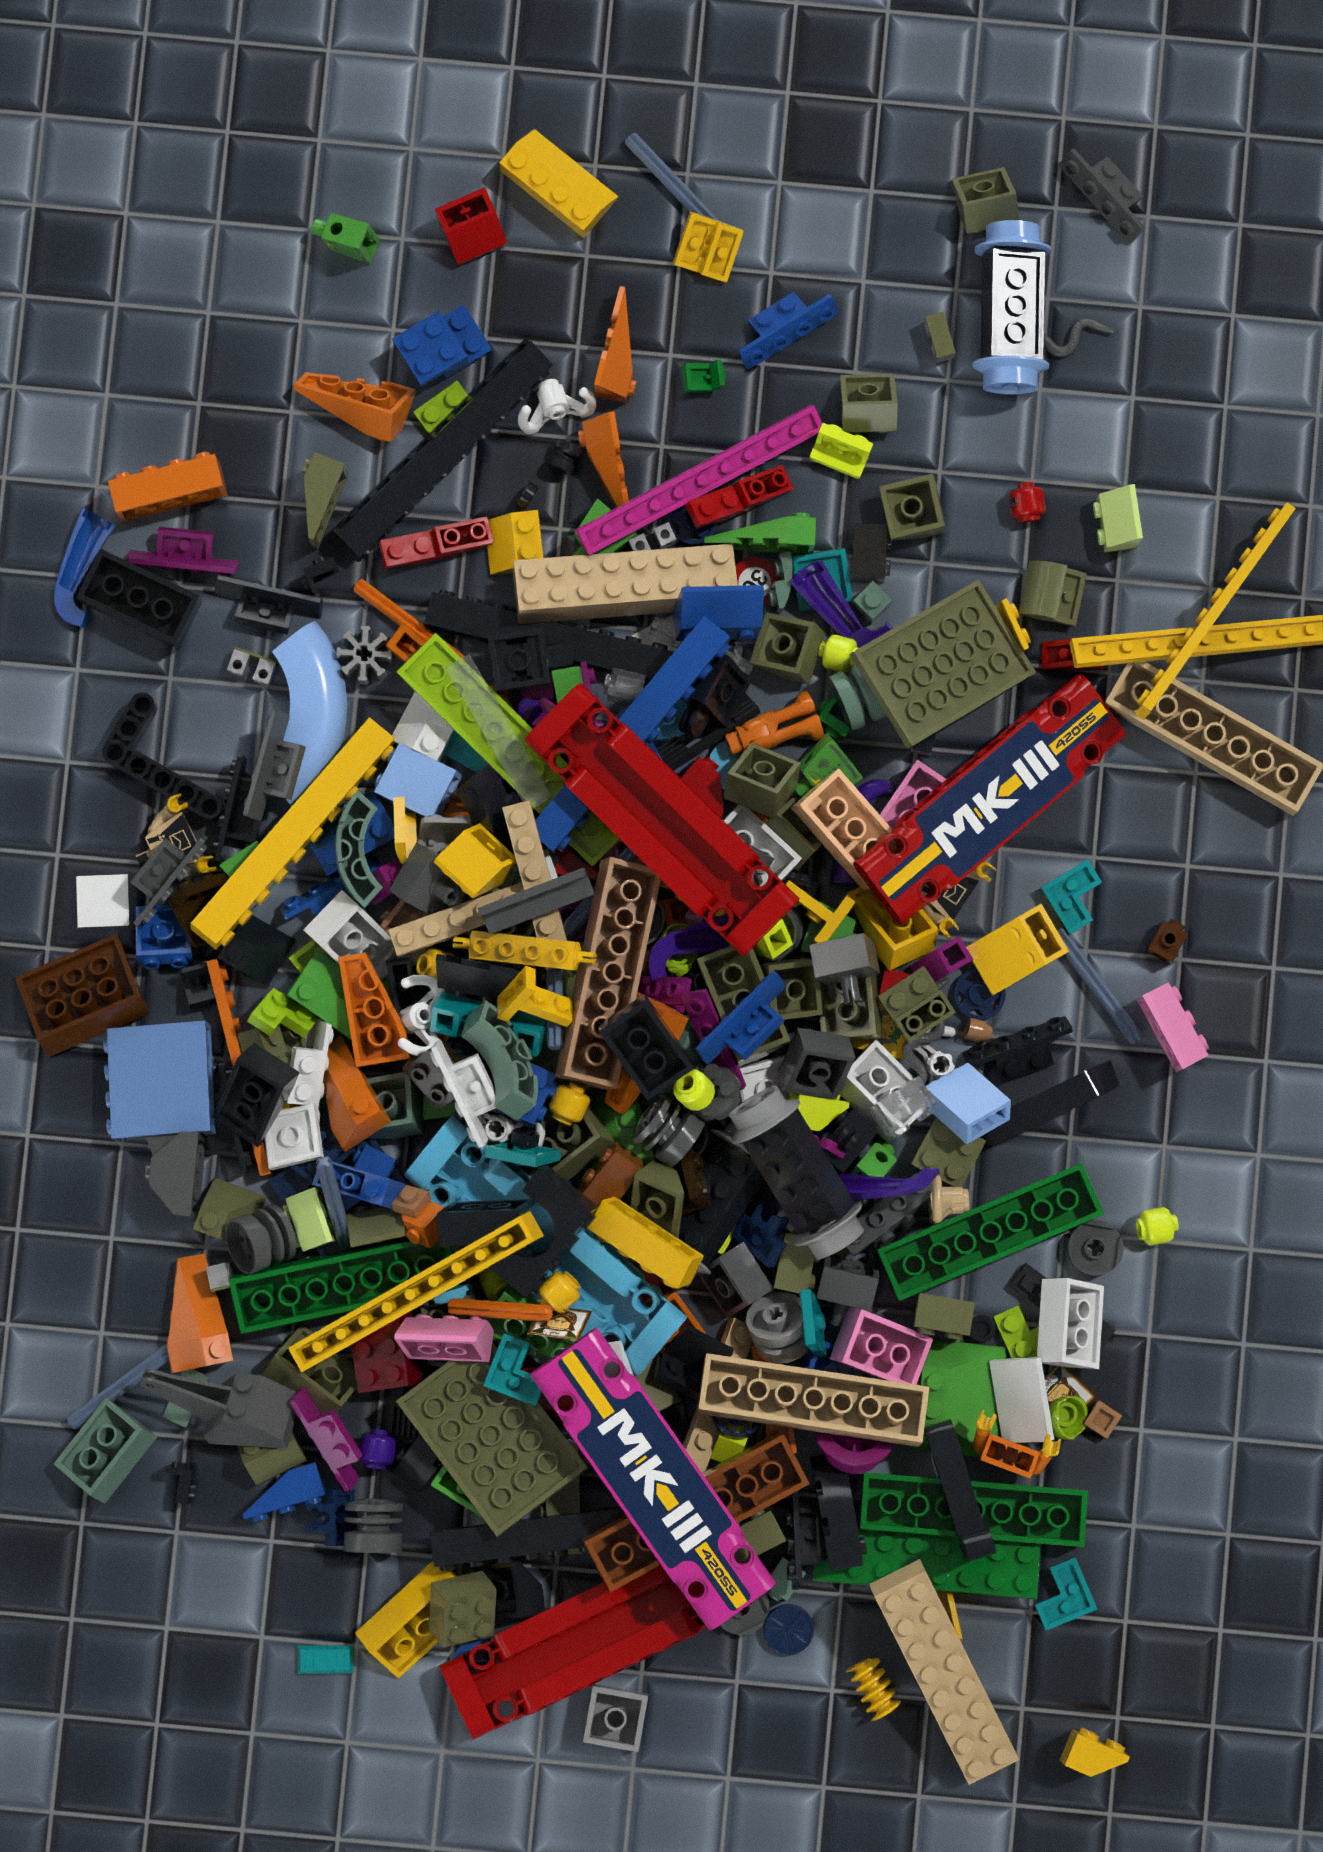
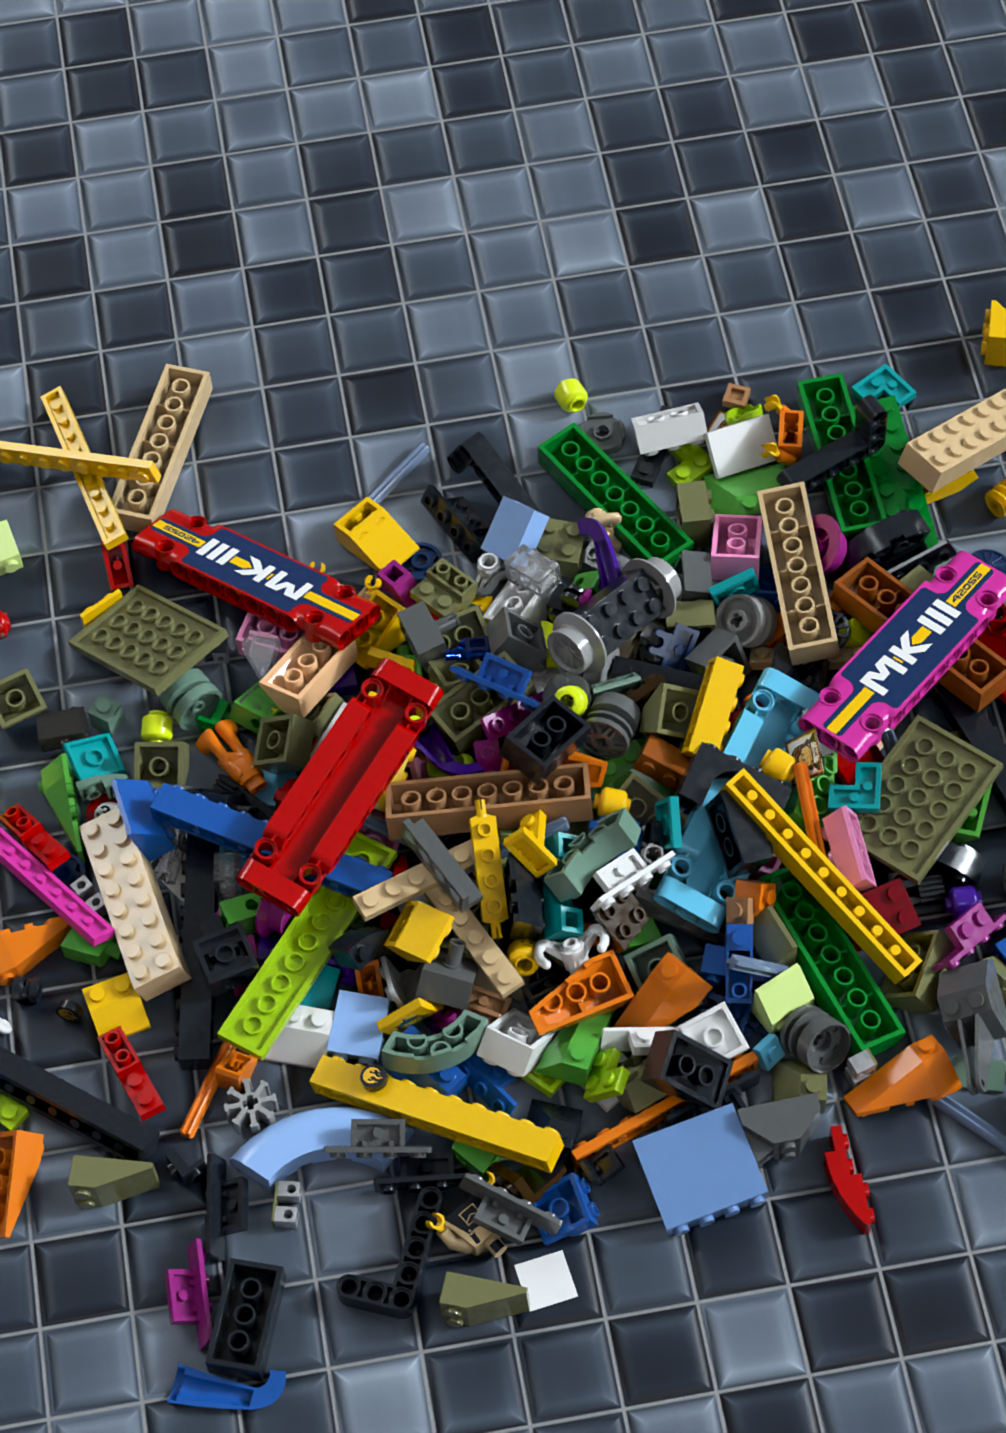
camera: 100 degrees left, 25 degrees down
(82, 995) = (641, 1268): reddish brown slope -> none
(91, 819) = (479, 1300): none -> olive slope
(100, 1225) = (845, 1185): none -> red slope
(167, 487) = (129, 1322): orange brick -> none
(268, 1190) = (769, 1051): none -> medium azure plate
(345, 780) = (374, 1077): none -> black tile
(498, 732) = (295, 952): clear plate -> none
(714, 1149) = (619, 684): none -> sand green slope
(821, 1009) = (469, 649): none -> clear blue tile
(825, 598) = (108, 748): dark purple animal -> none
(881, 780) = (261, 651): none -> clear slope
(977, 1030) = (452, 554): medium nougat hose -> none
(1052, 593) = (67, 589): olive brick -> none
(1064, 895) = (318, 521): teal plate -> none
(1160, 948) = (338, 443): reddish brown brick -> none
(1173, 1026) = (409, 422): bright pink slope -> none

